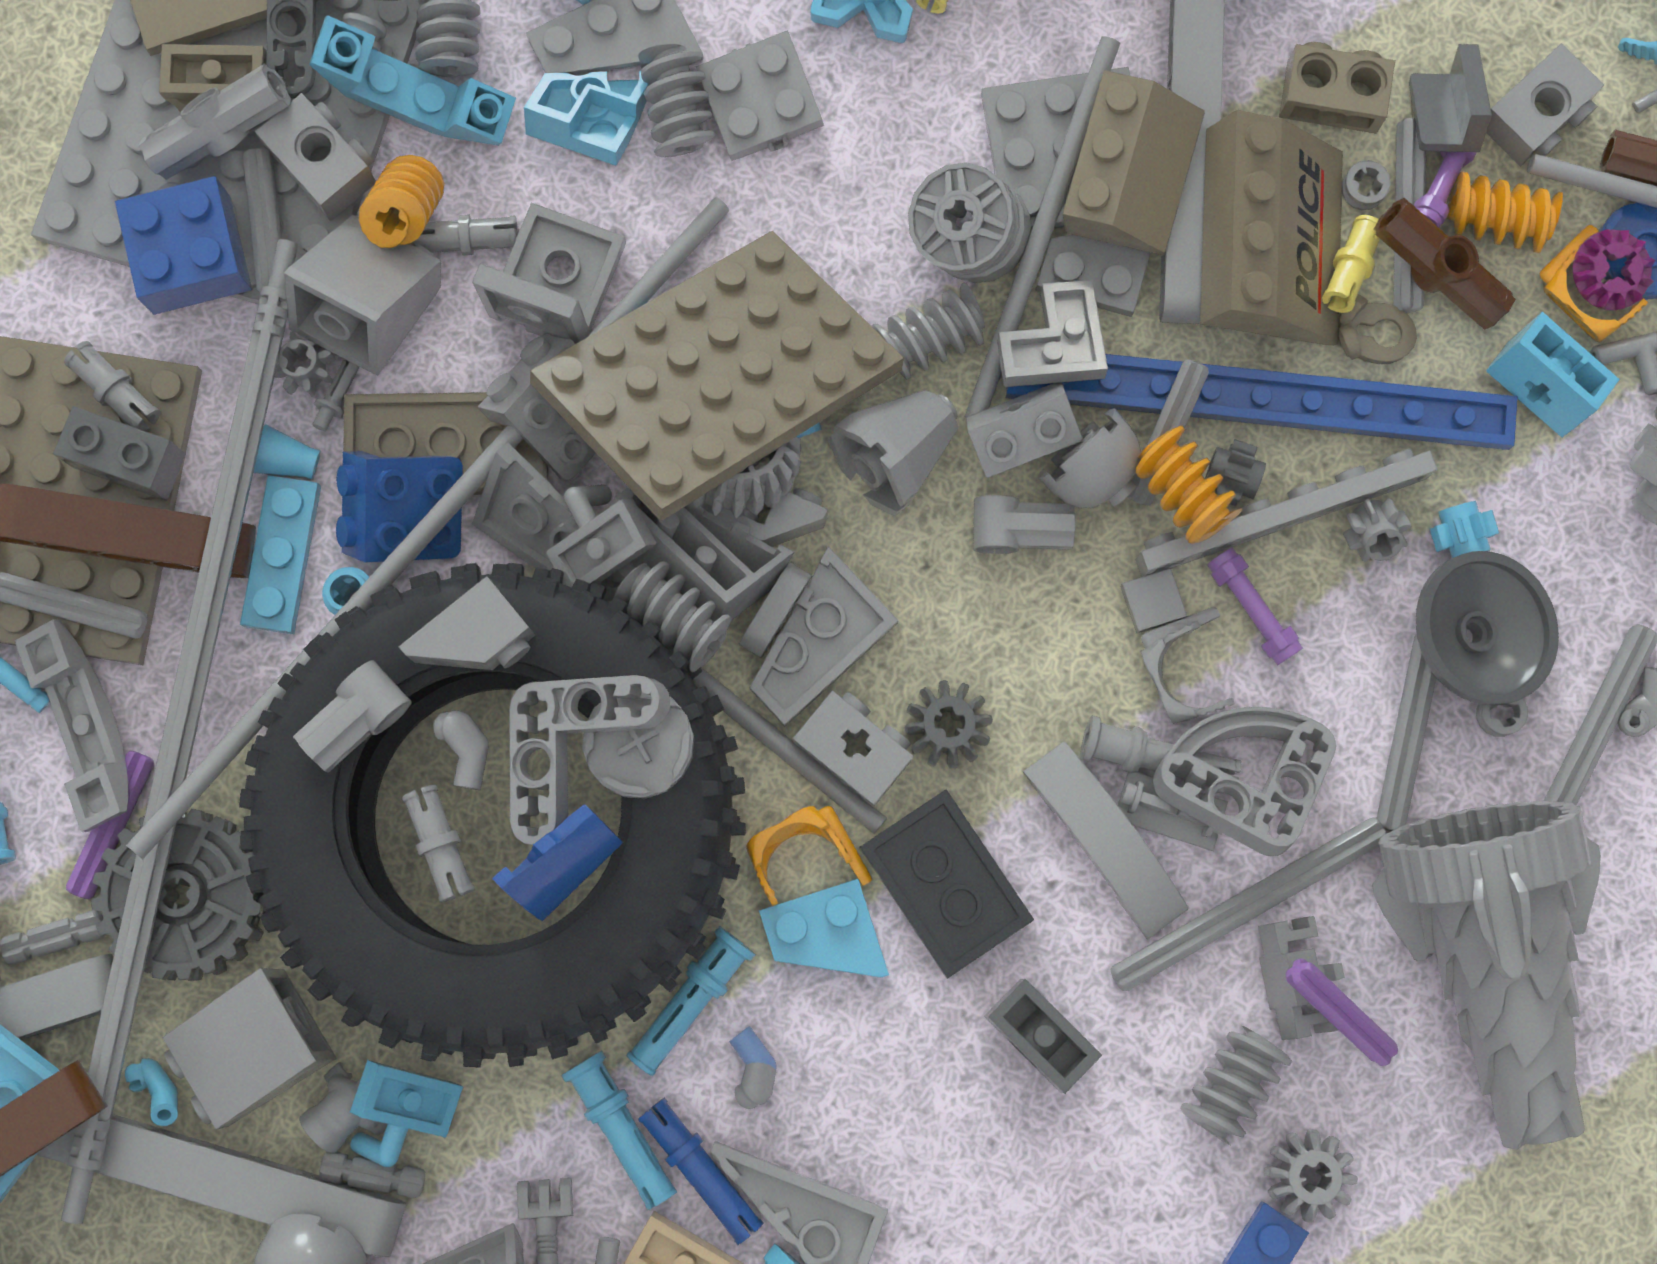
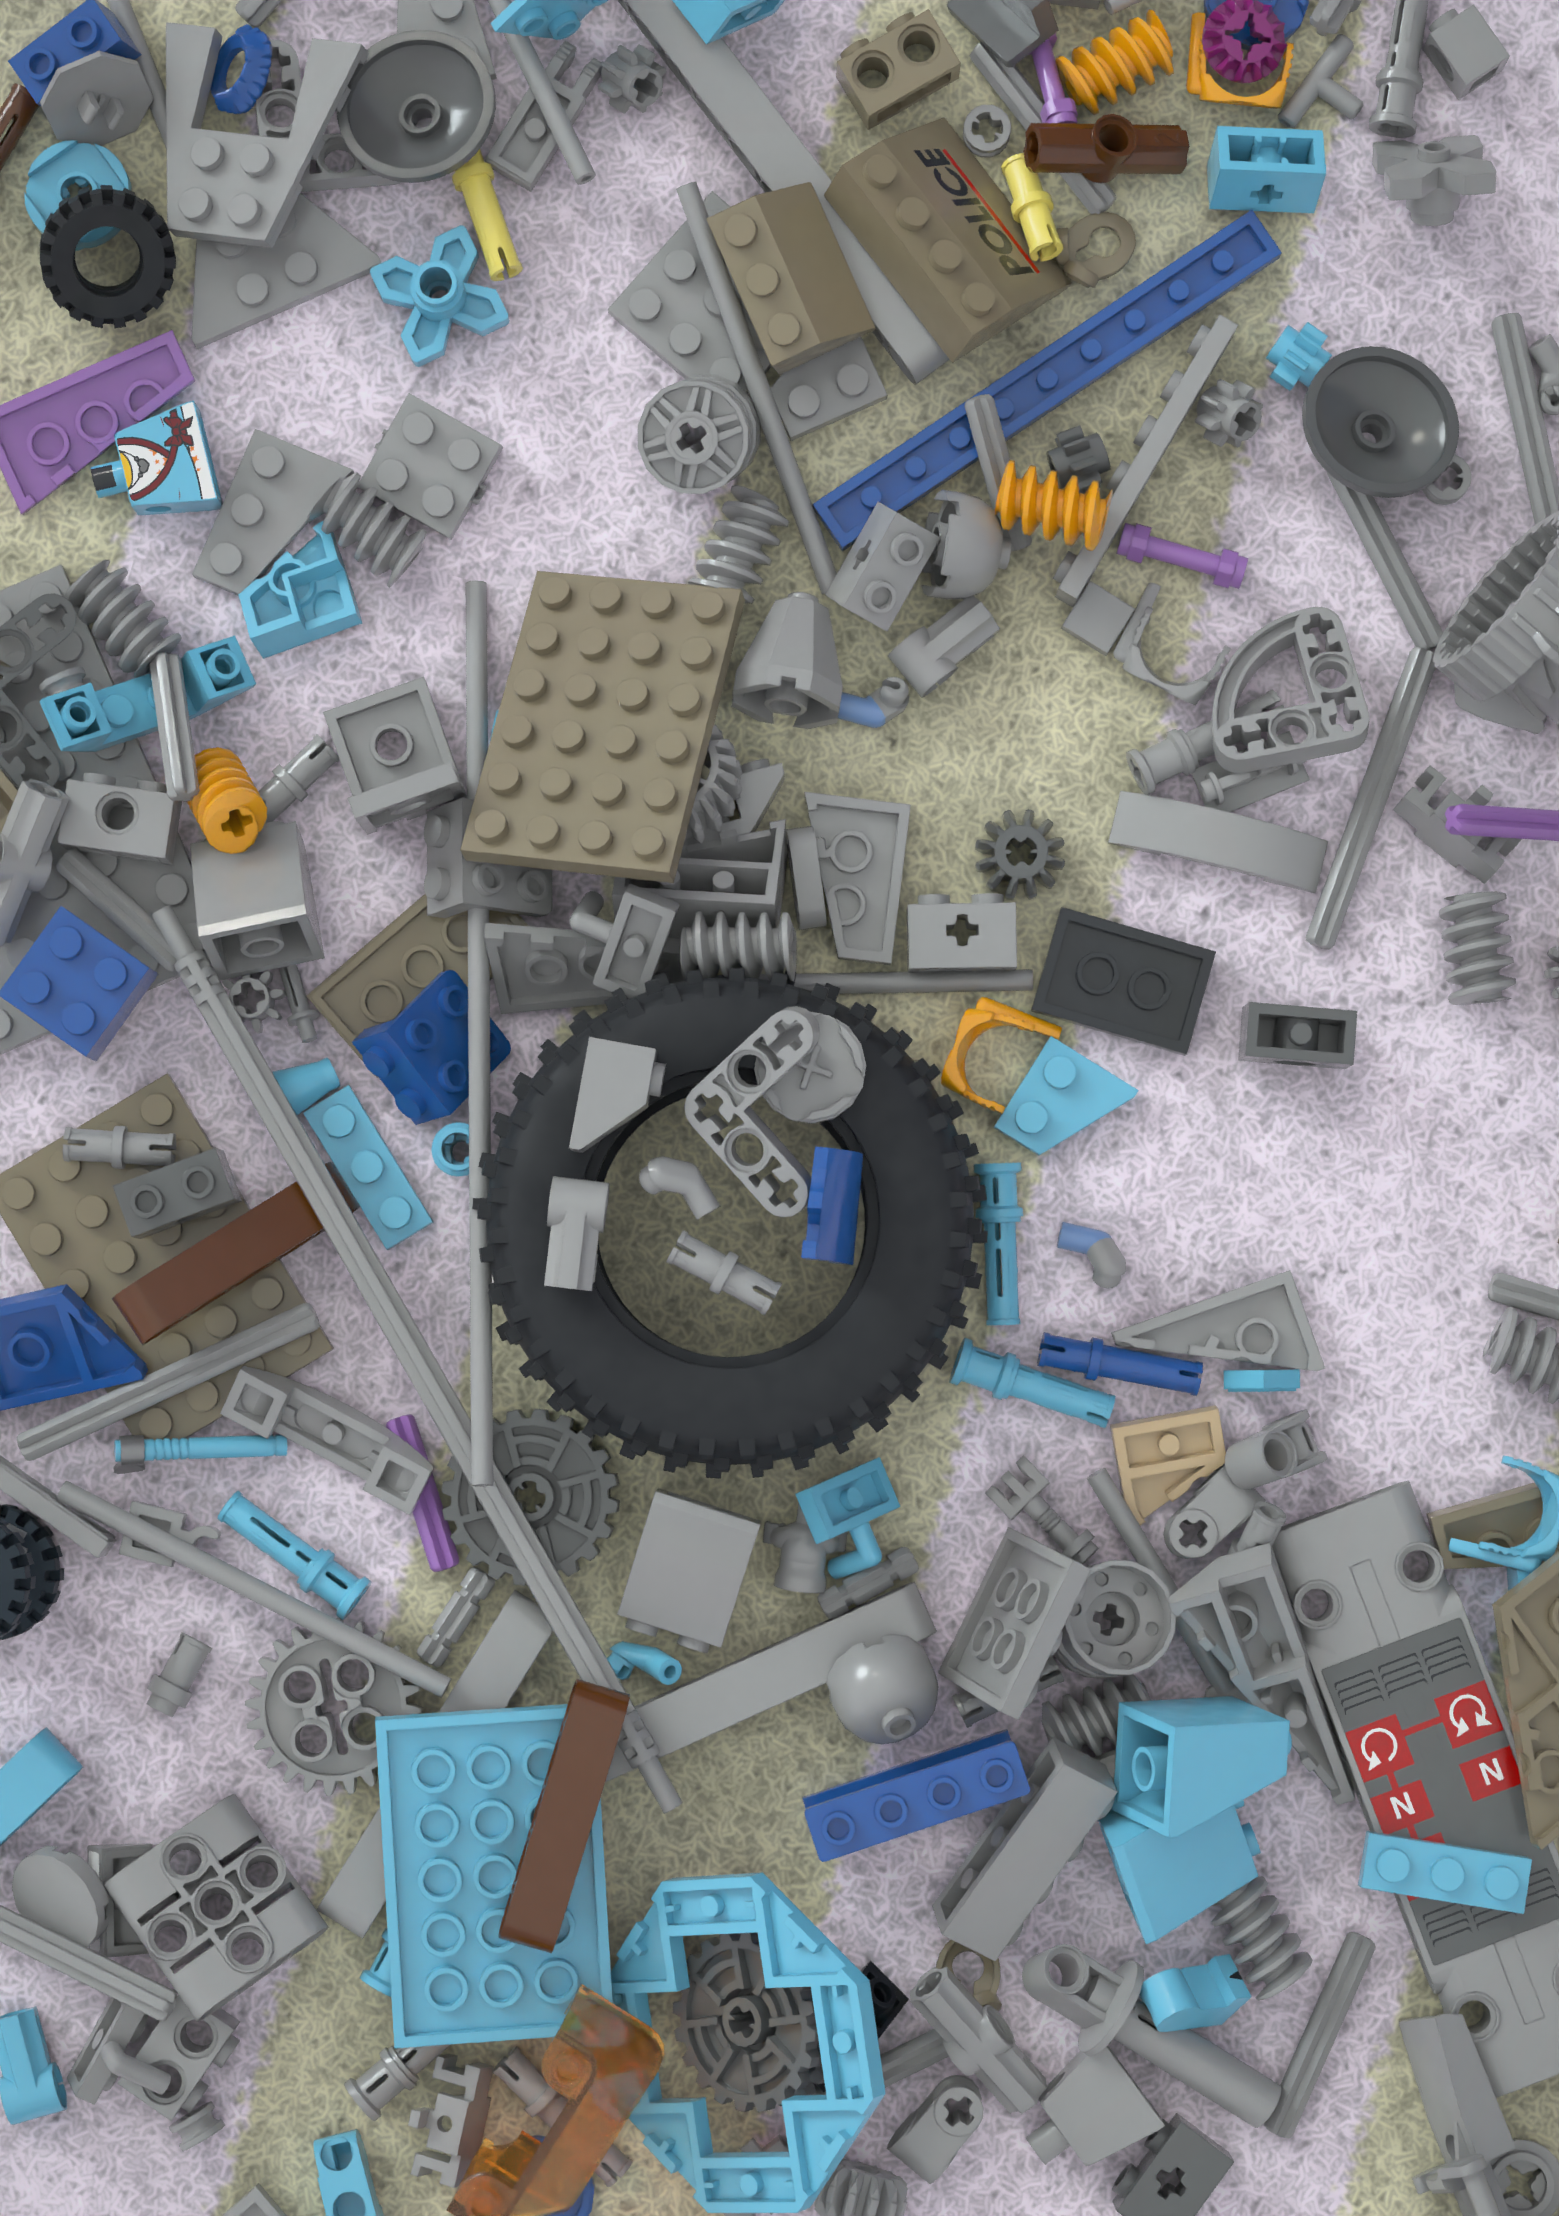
camera: 40 degrees left, 5 degrees up
(410, 121) = (174, 727): none -> light grey axle
(935, 531) = (878, 706): none -> arm
(1064, 350) = (861, 475): light grey plate -> none

